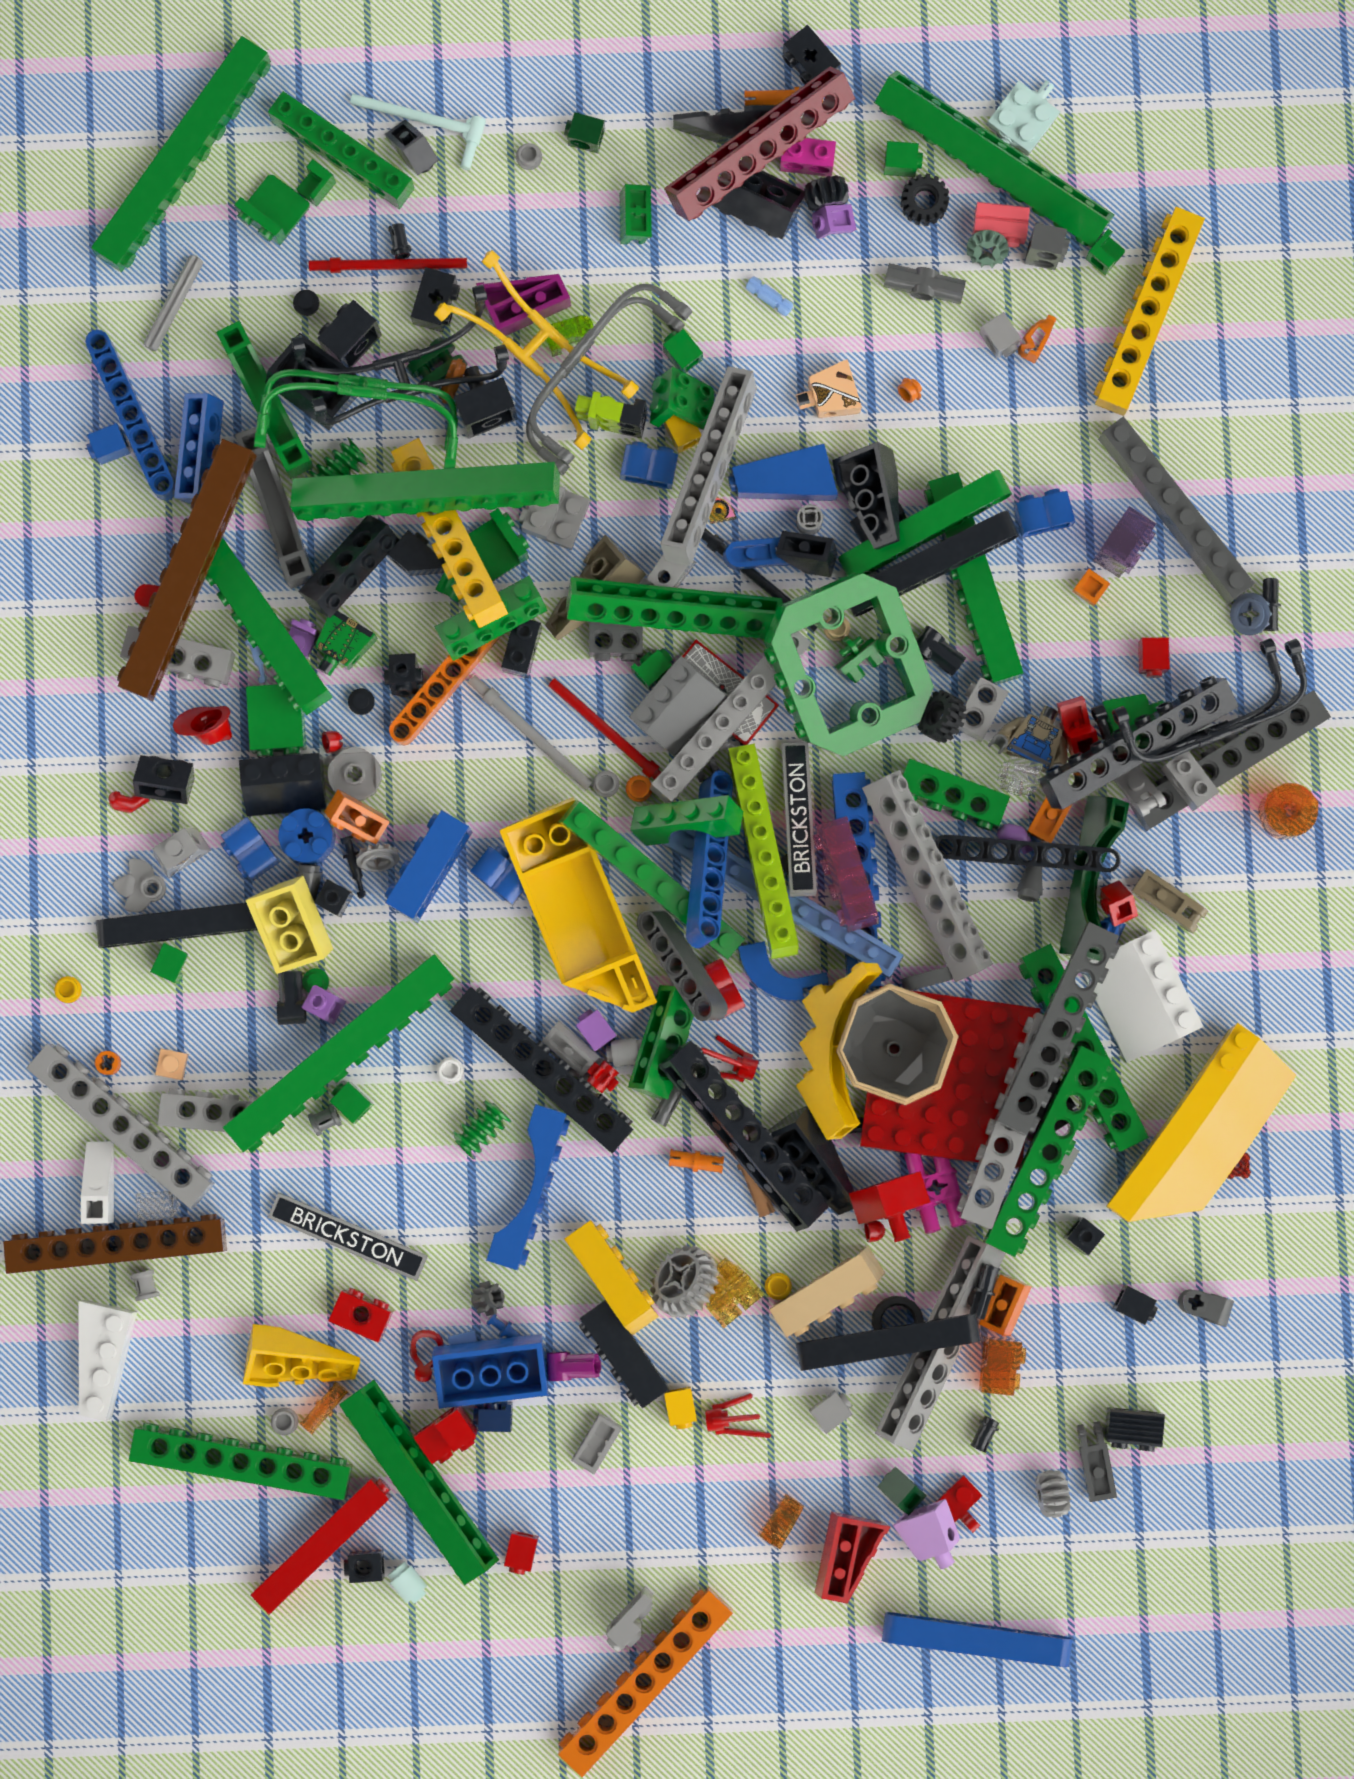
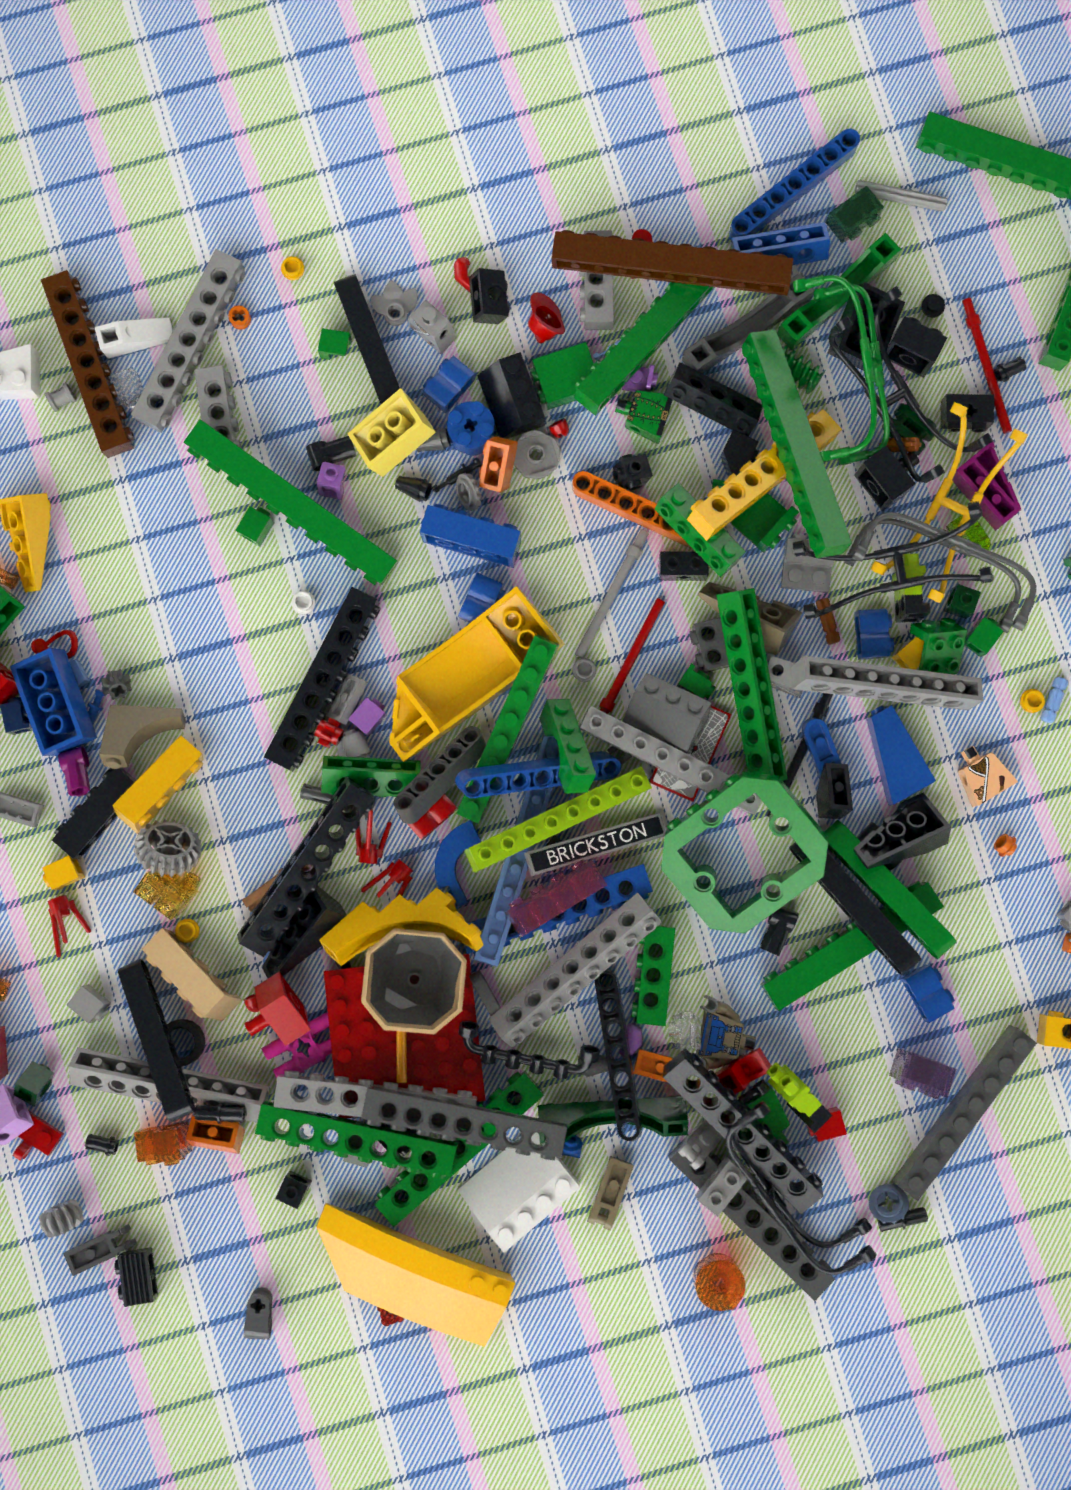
camera: 80 degrees right, 0 degrees up
(107, 444) = (763, 173): blue brick -> none
(171, 1064) = (251, 370): light nougat plate -> none
(183, 358) = (854, 215): none -> clear green brick
(272, 209) = (1006, 255): green bracket -> none
(315, 977) = (353, 469): green plate -> none
(317, 183) = (1040, 287): green panel -> none
(324, 1119) = (234, 507): dark grey bush -> none
(334, 898) = (424, 464): black brick -> none
(344, 1314) = (72, 569): red brick -> none
(347, 1236) = (142, 554): tile -> none
(355, 917) = (414, 487): none -> black cone
(361, 701) = (600, 443): black plate -> none
(480, 1128) = (258, 641): green piece -> none
(510, 1242) = (268, 696): blue arch -> none
(540, 1291) = (132, 726): none -> dark tan arch
(621, 509) = (828, 622): none -> dark orange axle
(629, 334) = (897, 552): none -> black bar
(638, 788) = (587, 697): orange plate -> none
(639, 362) = (962, 601): none -> dark green brick
(696, 1161) = (277, 832): orange pin -> none
(721, 512) = (850, 707): clear yellow tile -> none
(764, 319) = (1032, 700): none -> yellow plate
(774, 1039) = (398, 872): none -> red plant
(809, 524) = (860, 786): light grey wheel -> none
(838, 634) = (772, 840): tan plate -> none
(850, 665) = (762, 867): green hips -> none
(952, 711) = (725, 956): black tyre -> none
(971, 1083) = (401, 1057): none -> light orange bar
(984, 711) = (735, 984): light grey brick -> none
(1014, 941) = (588, 1054): none -> black bar
(1091, 587) = (873, 1052): orange plate -> none
(1118, 903) = (595, 1147): red brick -> none
(1119, 675) = (798, 1096): none -> lime hips
(1135, 1305) = (244, 1250): black brick -> none

